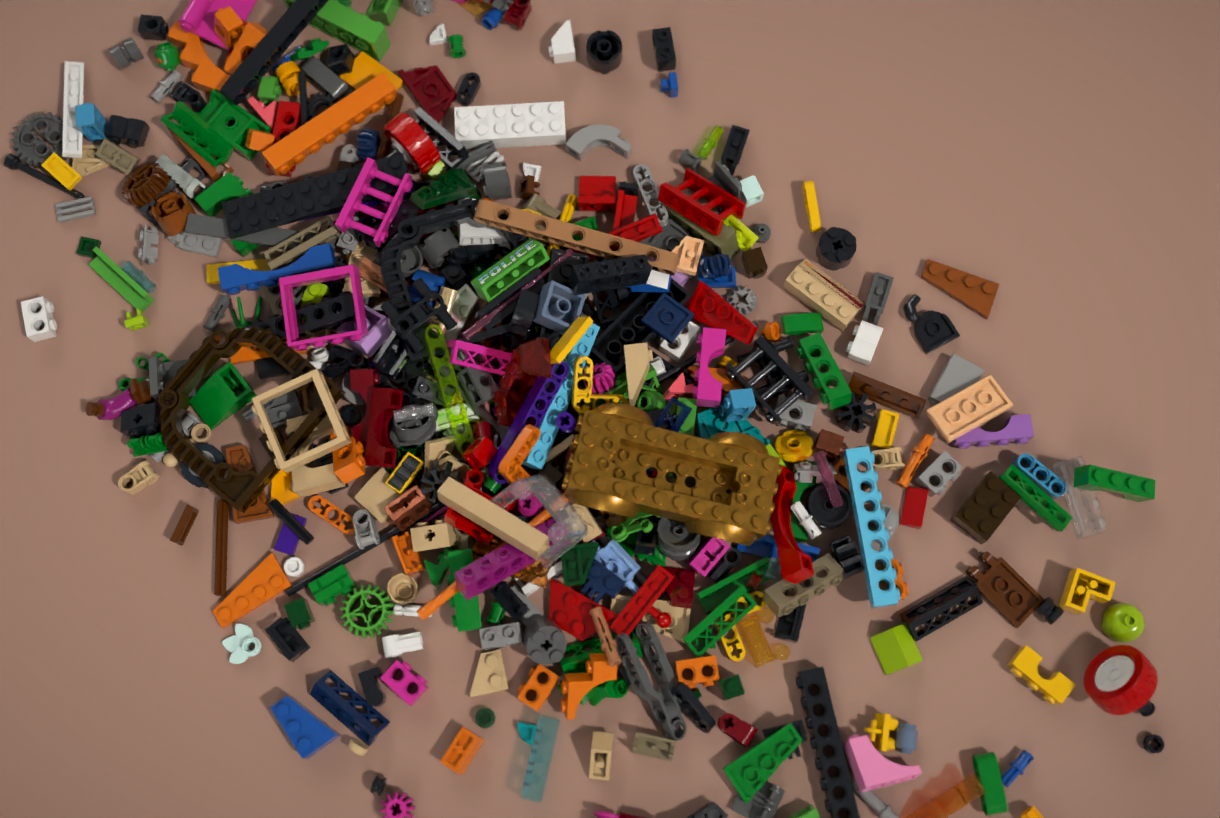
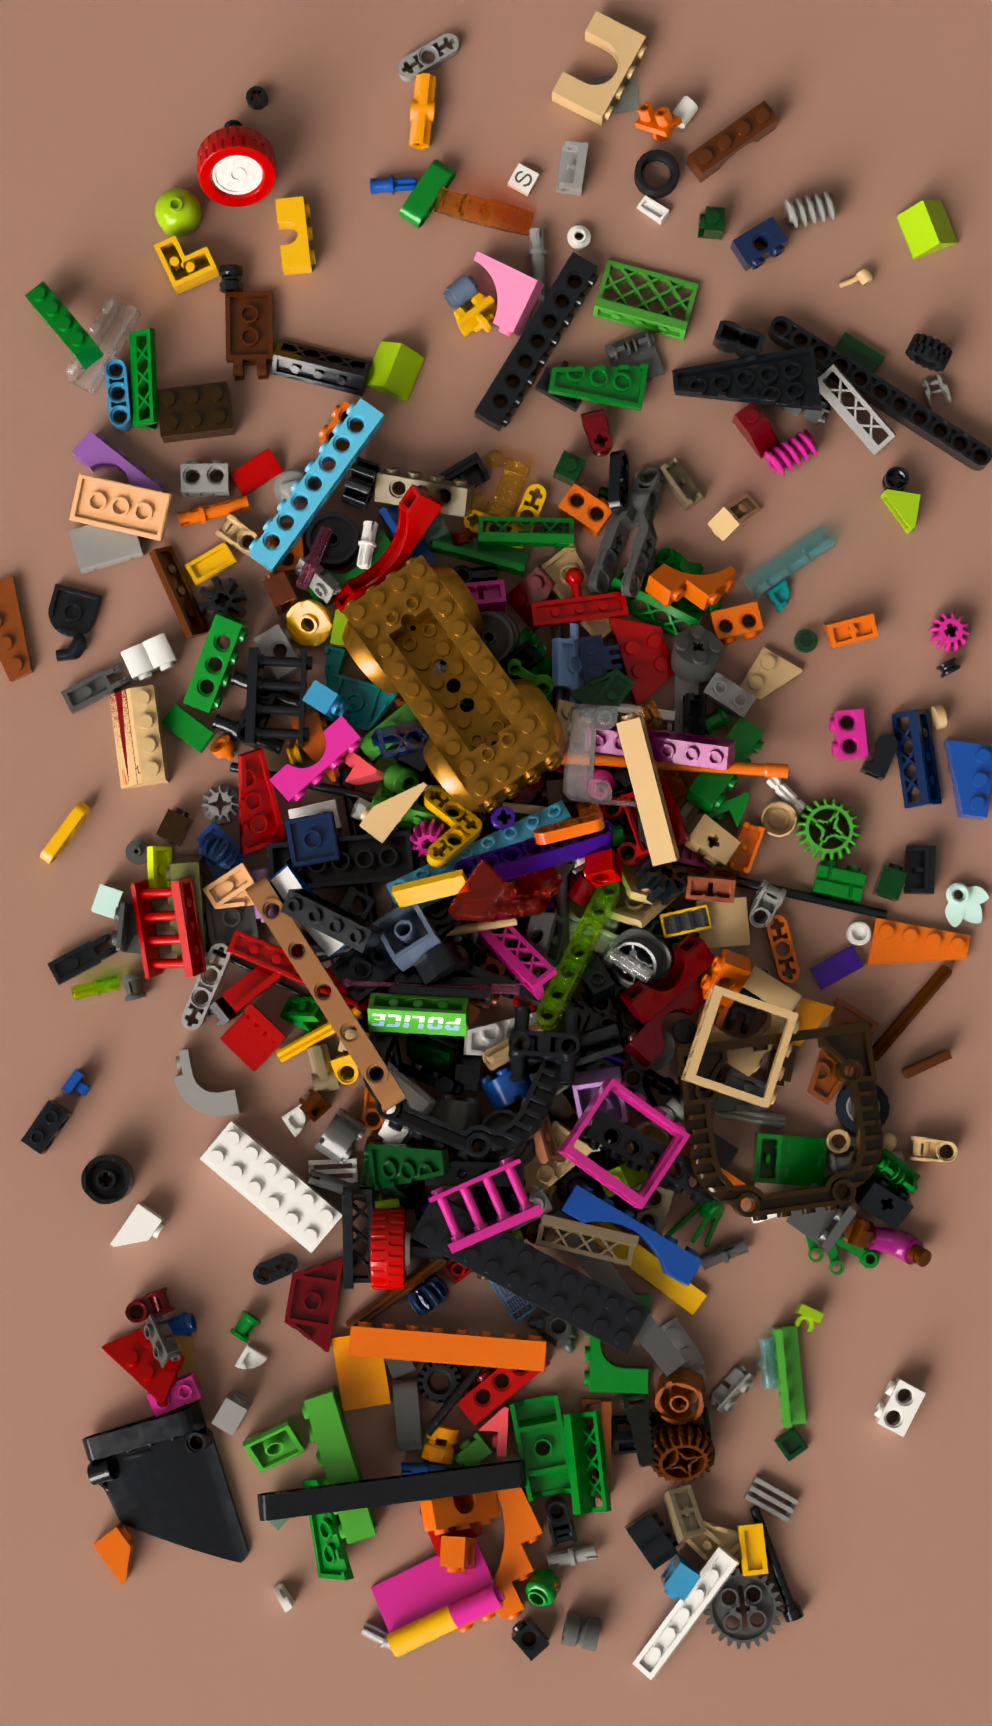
camera: 140 degrees left, 10 degrees up
(259, 140) = (532, 1395): orange panel -> none
(291, 521) = (826, 975): black axle -> none
(311, 49) = (393, 1455): green slope -> none
(341, 59) = (373, 1408): black brick -> none
(348, 157) = (466, 1296): light grey leg -> none
(397, 645) = (828, 775): white piece -> none
(613, 657) = (651, 579): nougat pin -> none
(840, 239) = (73, 762): black brick -> none

